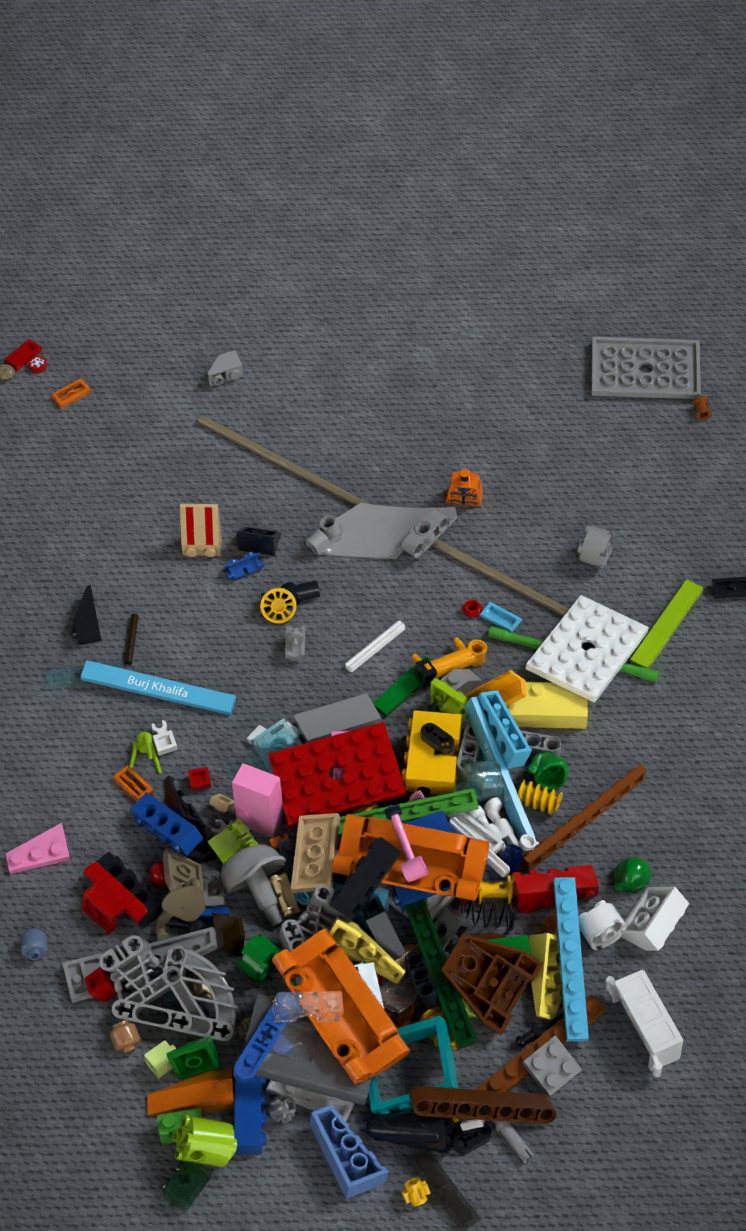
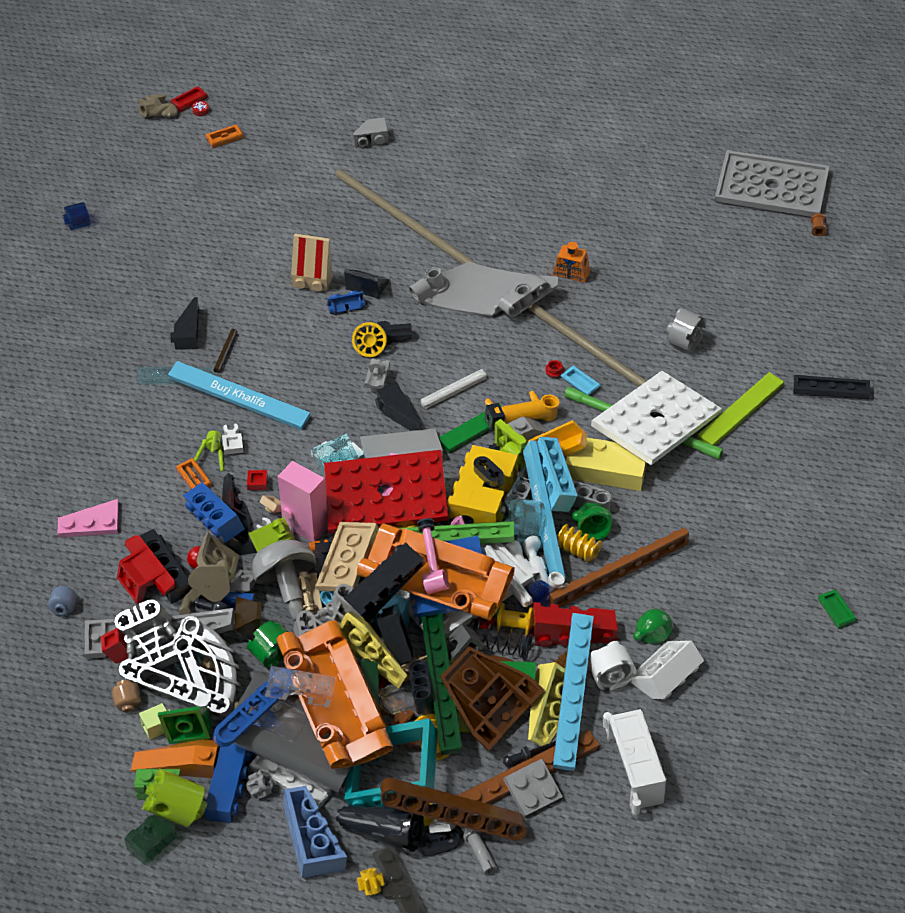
camera: 10 degrees right, 5 degrees down
(323, 676) = (397, 407): none -> black slope

